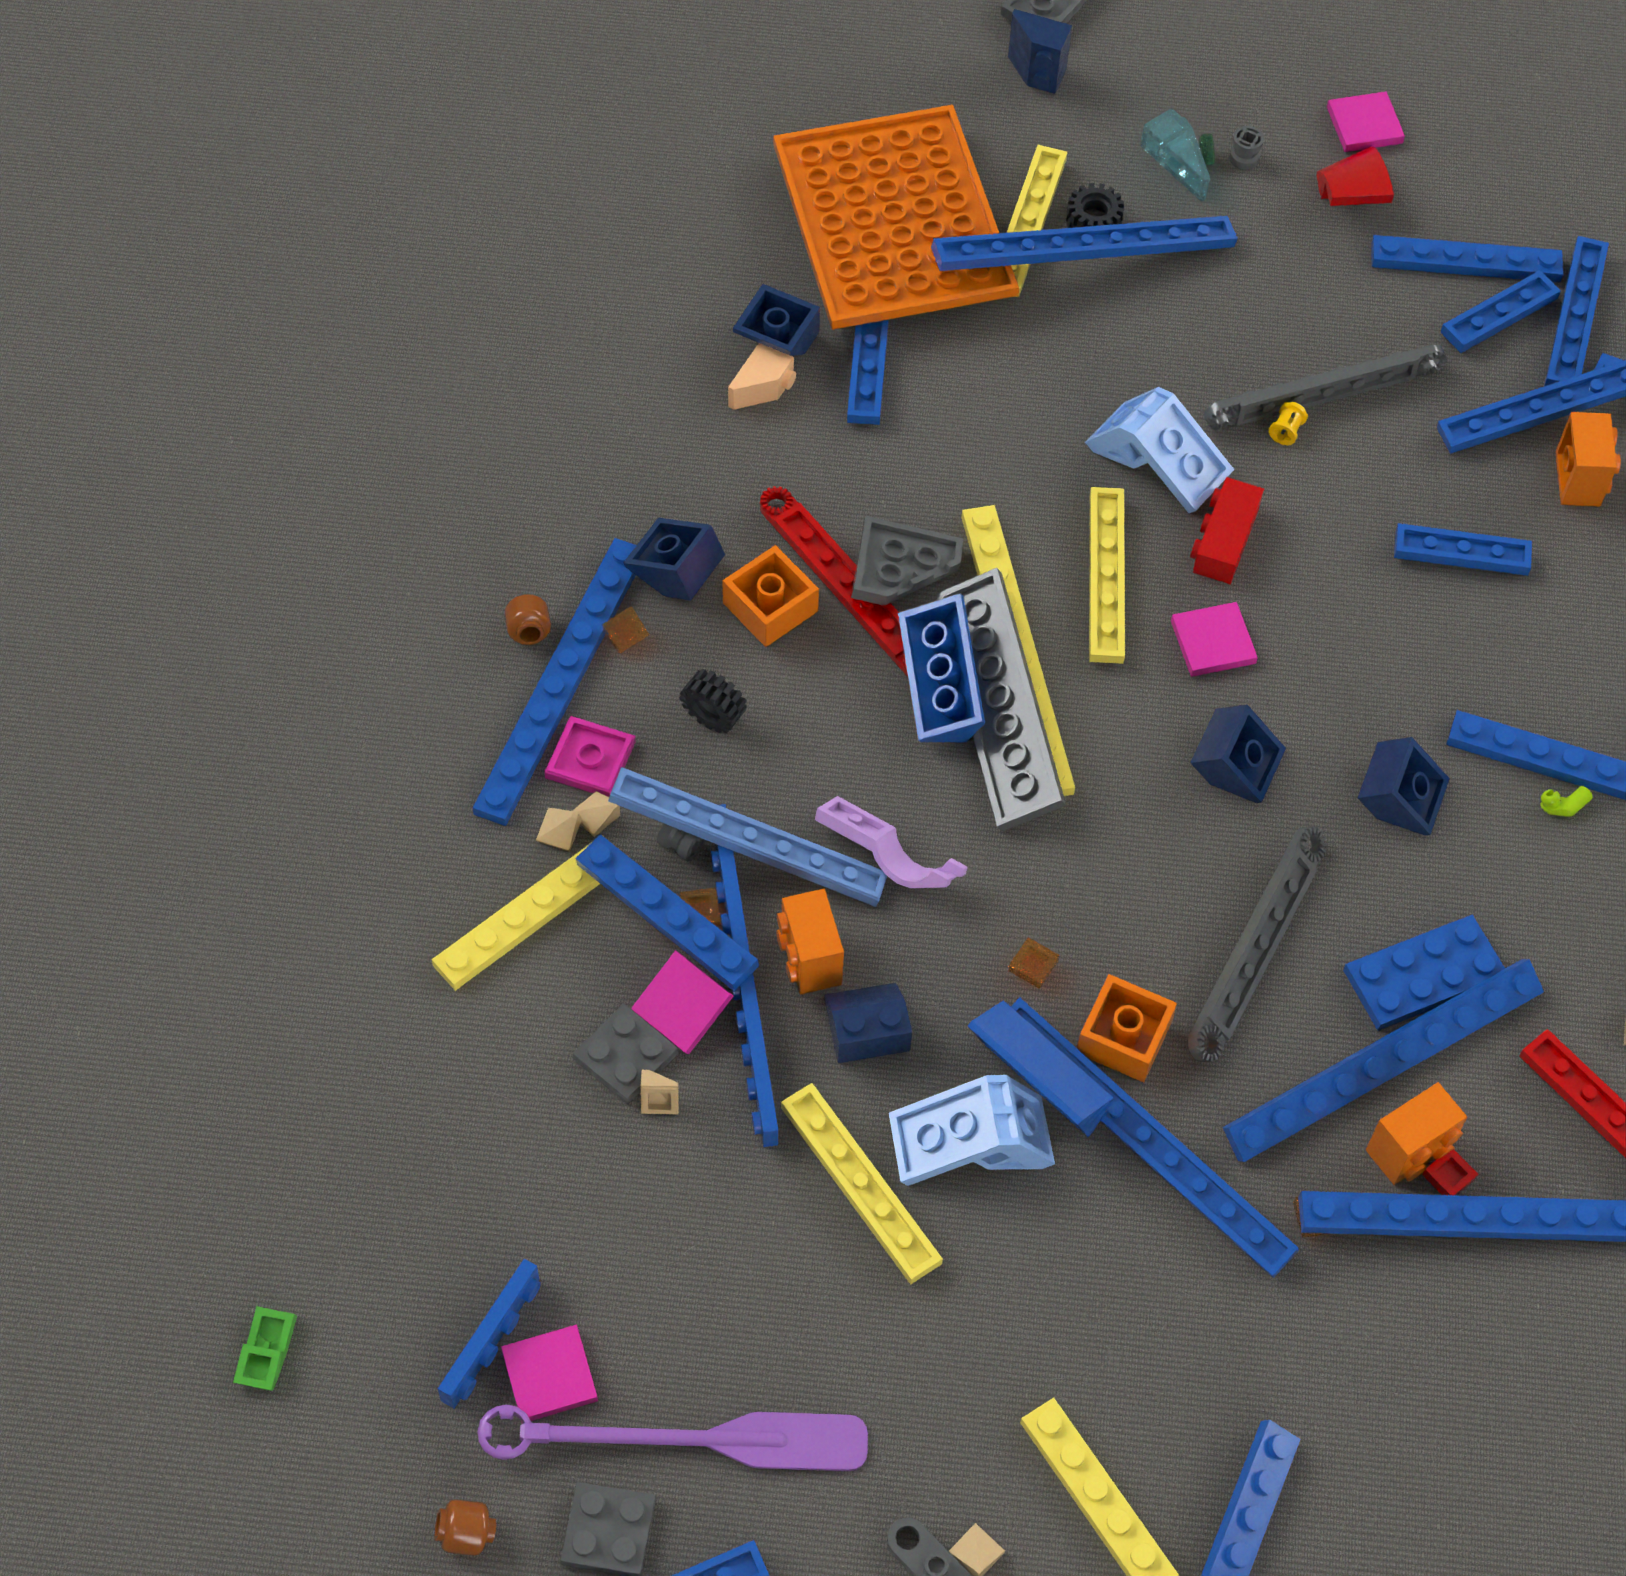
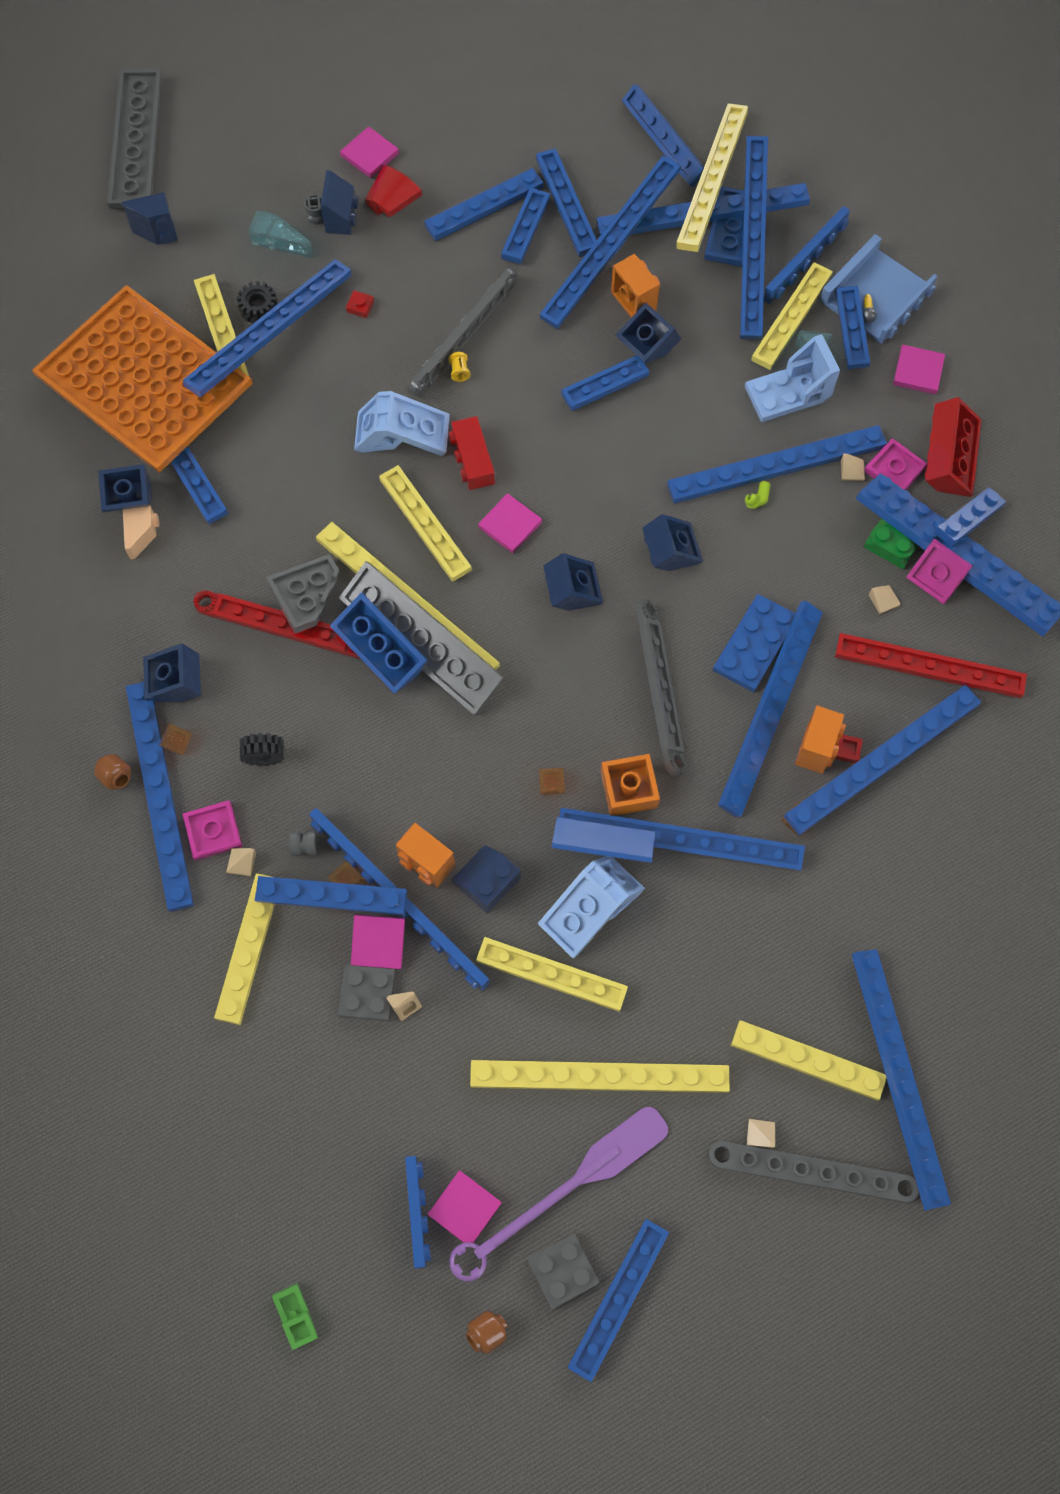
camera: 35 degrees left, 10 degrees up
(559, 828) = (227, 886): tan slope -> none
(748, 836) = (342, 819): medium blue tile -> none
(770, 595) = (246, 662): orange brick -> none
(831, 1343) = (599, 1076): none -> light yellow plate
(883, 842) = (416, 767): lavender piece -> none
(1207, 148) = (293, 222): clear green tile -> none
(1220, 284) = (360, 304): none -> red plate
(1277, 156) = (338, 204): none -> dark blue slope
(1562, 525) = (648, 334): none -> dark blue slope

